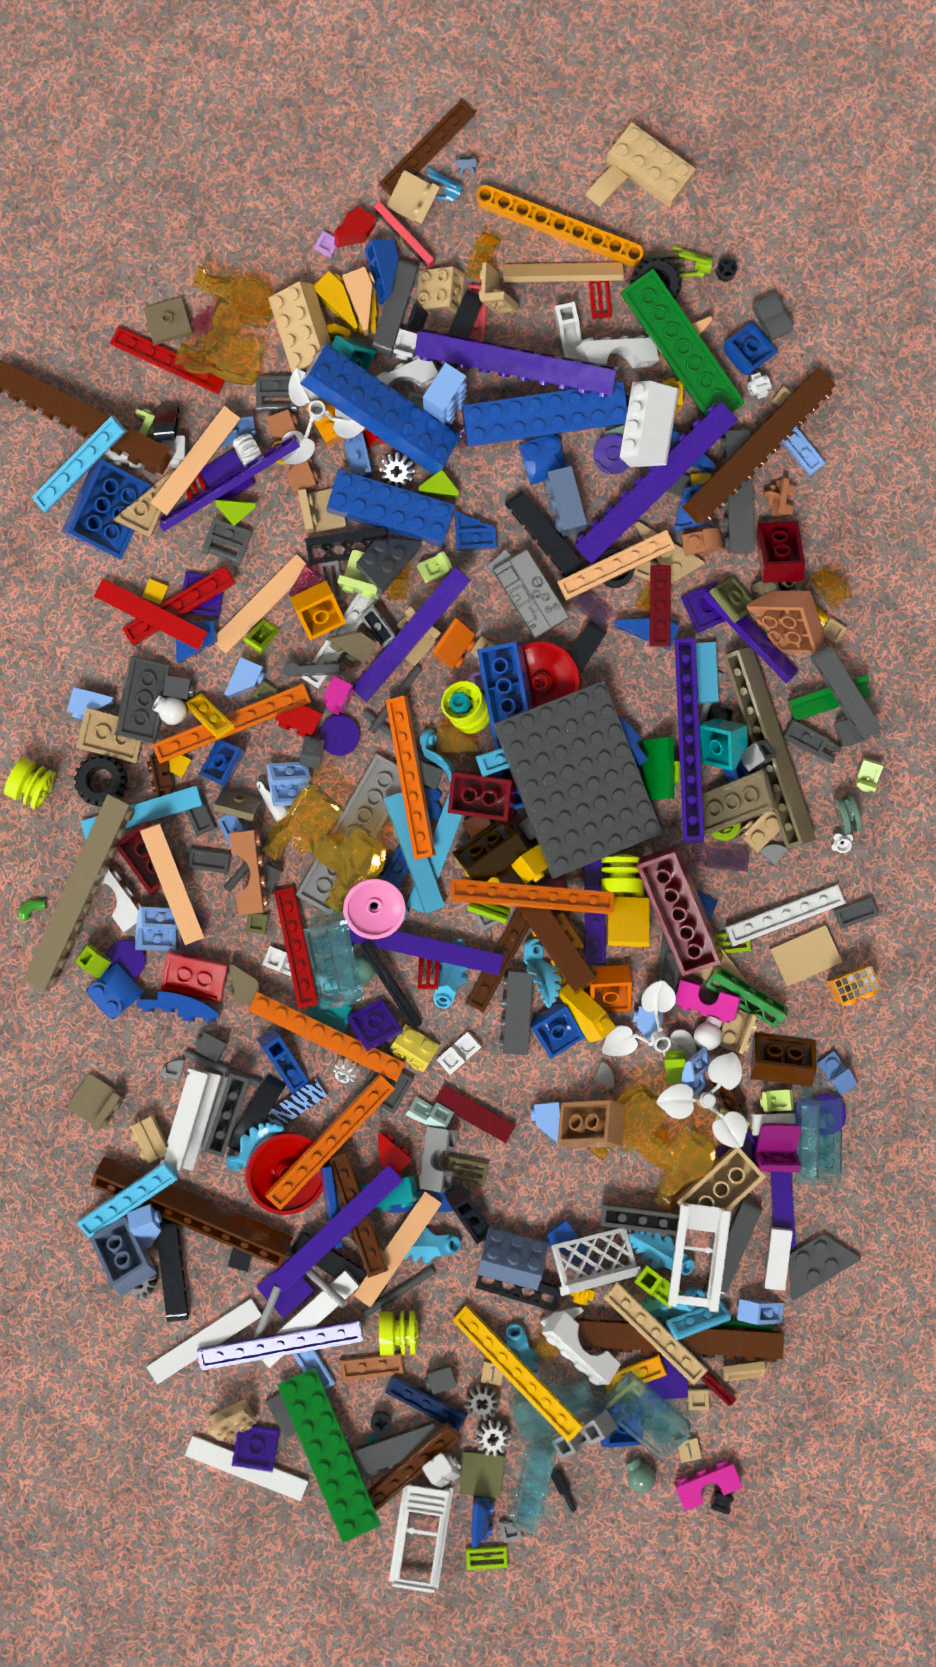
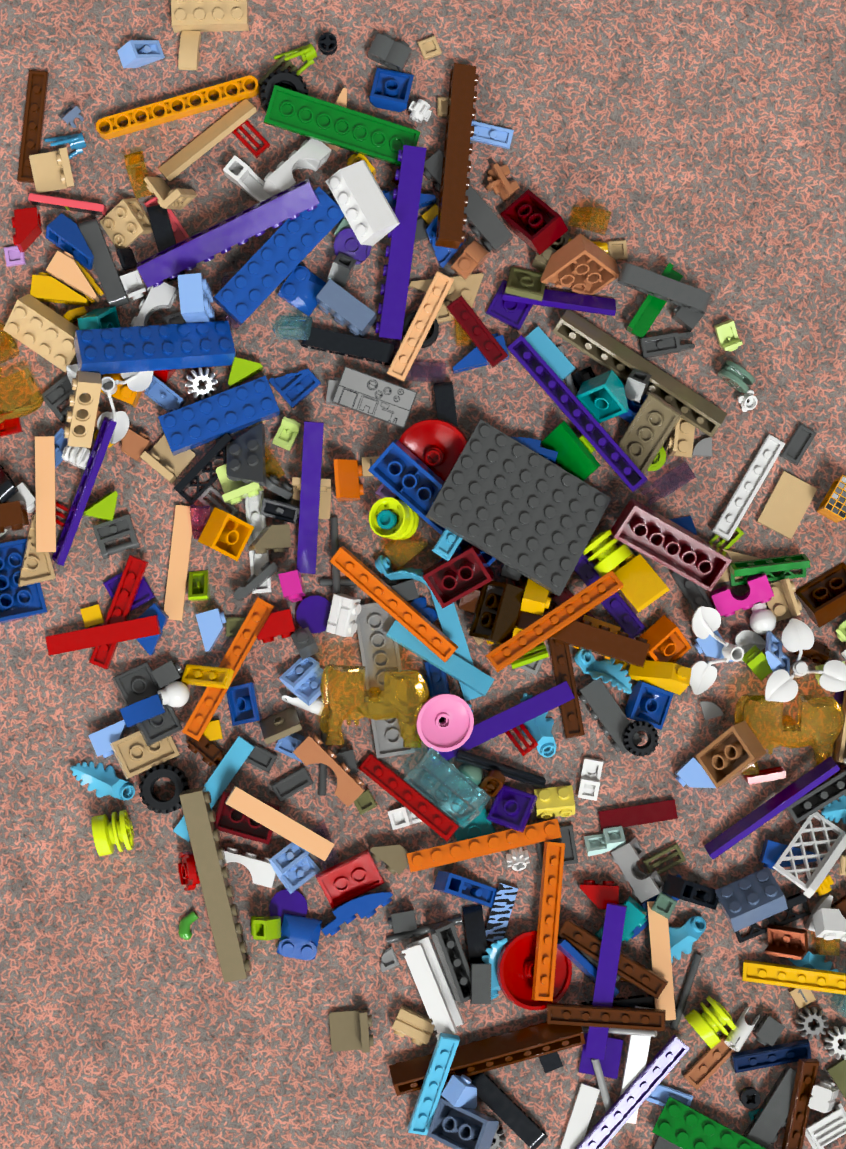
camera: 35 degrees left, 0 degrees up
(56, 734) = (103, 781): none -> medium azure plant
(65, 863) = (187, 871): none -> red plate
(133, 701) = (142, 710): none -> blue slope
(220, 469) = (69, 484): dark purple tile -> none
(232, 1148) = (480, 983): none -> dark grey tile
(300, 394) = (83, 383): none -> tan brick
(314, 1258) = (606, 1016): none -> reddish brown tile
(362, 754) = (343, 615): none -> white brick
(375, 990) = (493, 782): none -> reddish brown plate
(394, 609) = (281, 488): none -> dark grey plate
(417, 1362) = (738, 1036): none -> white piece
(436, 1205) = (664, 905): none -> sand green tile
(509, 483) = (293, 327): none -> clear light blue slope
(514, 1318) = (787, 942): none -> copper bracket
(517, 1060) = (652, 738): none -> black tyre
(563, 156) = (140, 53): none -> light blue slope
(588, 466) = (341, 269): none -> dark grey brick
(590, 1196) = (771, 807): none -> dark purple tile
(608, 1166) = (766, 775): none -> tile
(809, 339) = (429, 47): none -> tan tile

